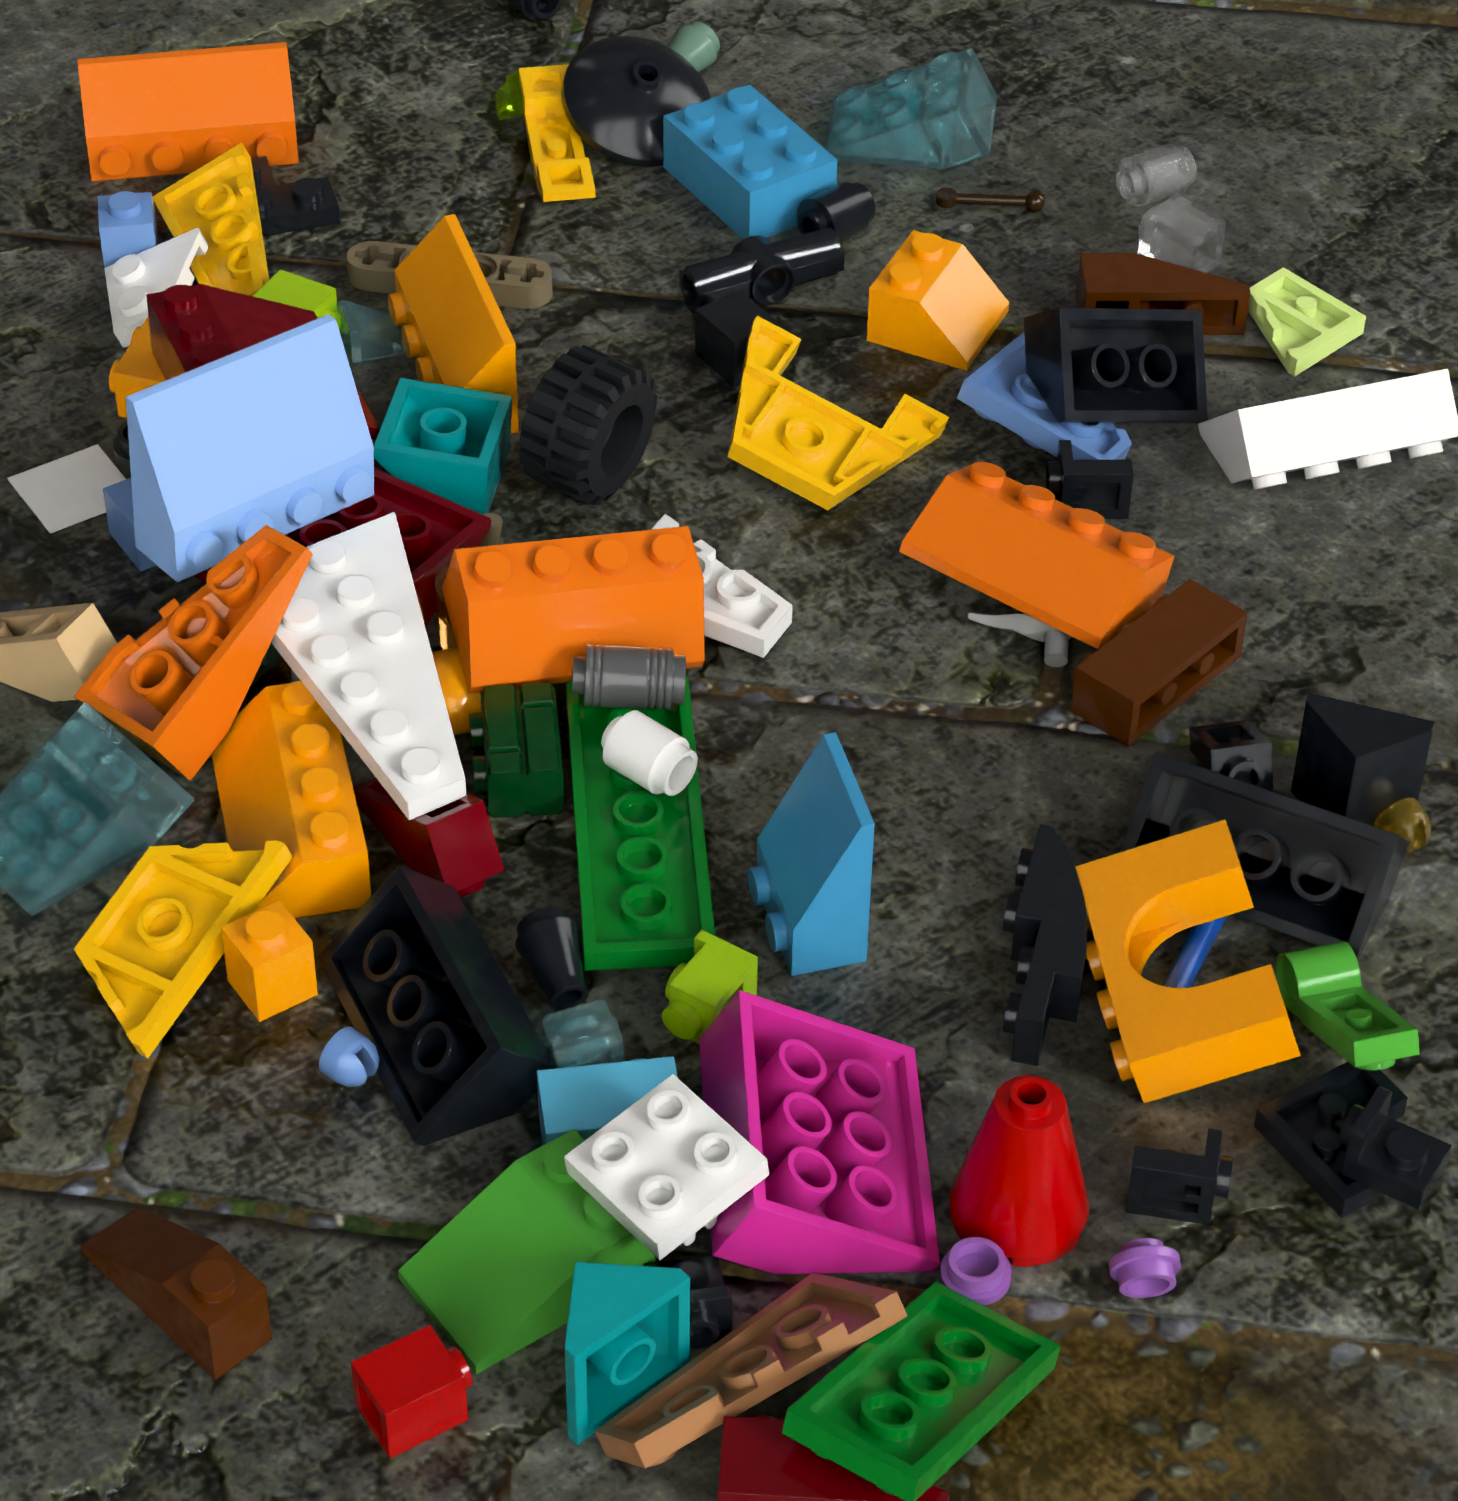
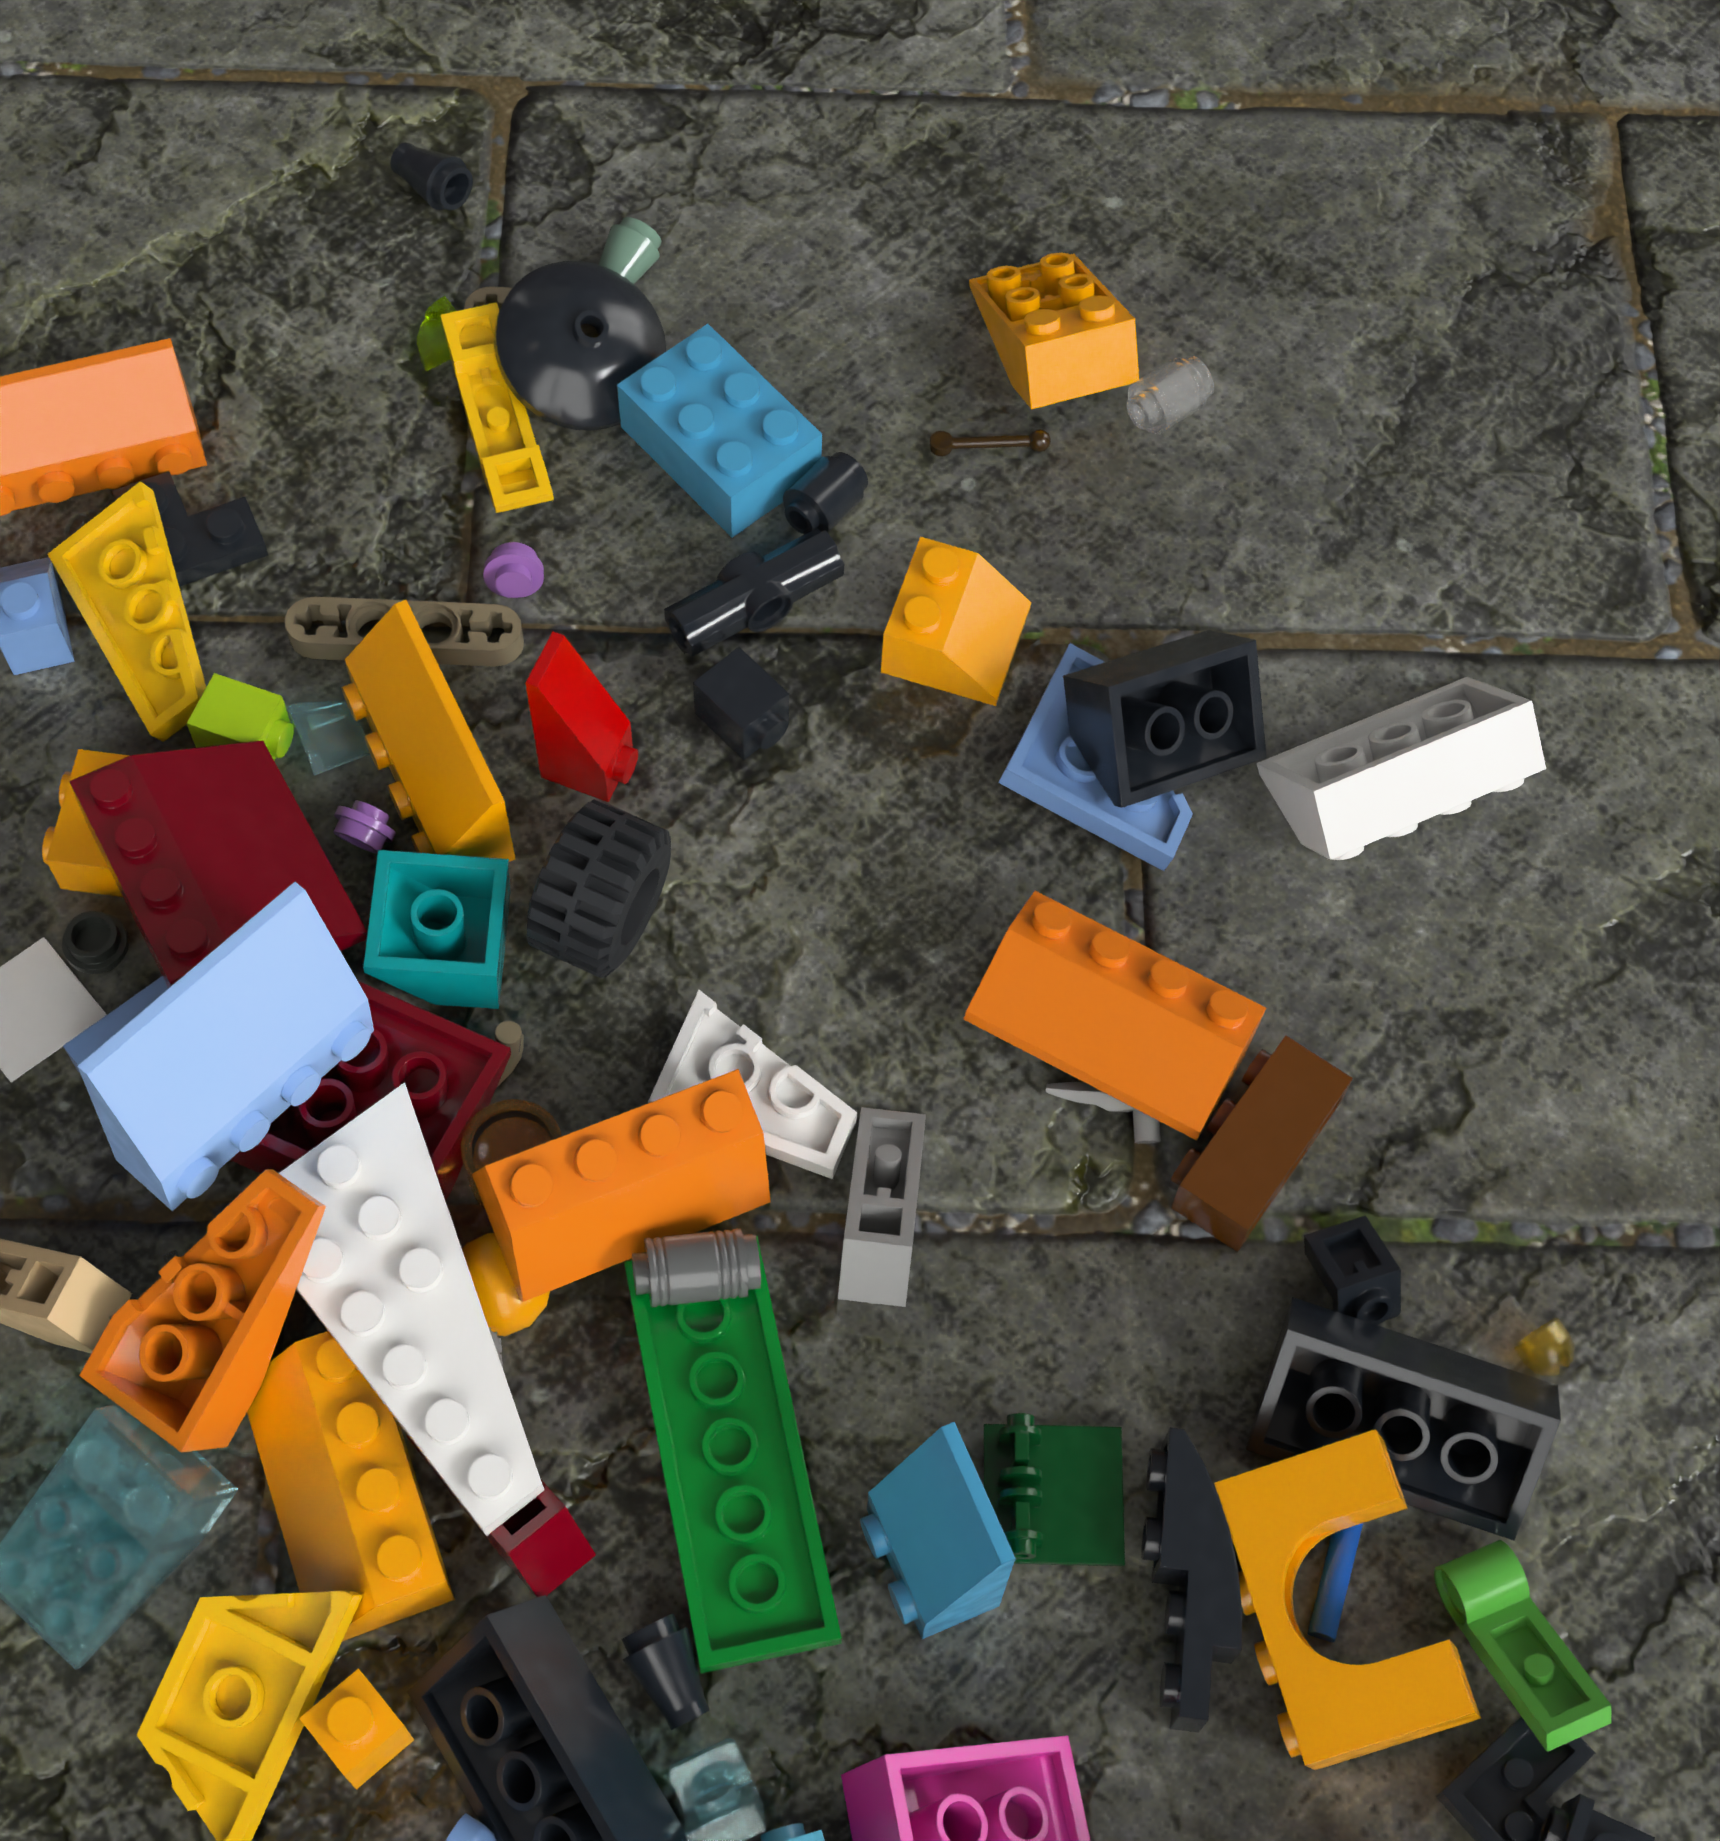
camera: 10 degrees left, 20 degrees up
(146, 274) = (67, 697): white wing -> none
(381, 385) = (363, 826): none -> medium lavender plate
(520, 748) = (587, 1368): dark green brick -> none
(551, 240) = (513, 570): none -> medium lavender plate
(585, 299) = (577, 724): none -> red slope
(648, 753) = (733, 1383): white brick -> none
(706, 985) = (841, 1702): lime brick -> none
(801, 676) = (882, 1207): none -> light grey slope
(808, 440) = (834, 854): yellow wing -> none
(917, 116) = (893, 332): clear light blue slope -> none
(930, 879) = (1057, 1491): none -> dark green hinge
(1063, 127) = (1057, 329): none -> light orange slope
(1091, 484) = (1153, 890): black bracket -> none
(1150, 283) = (1184, 586): reddish brown slope -> none
(1182, 234) = (1208, 492): clear brick -> none
(1301, 320) = (1350, 599): yellowish green wing -> none
(1359, 758) = (1493, 1295): black slope -> none

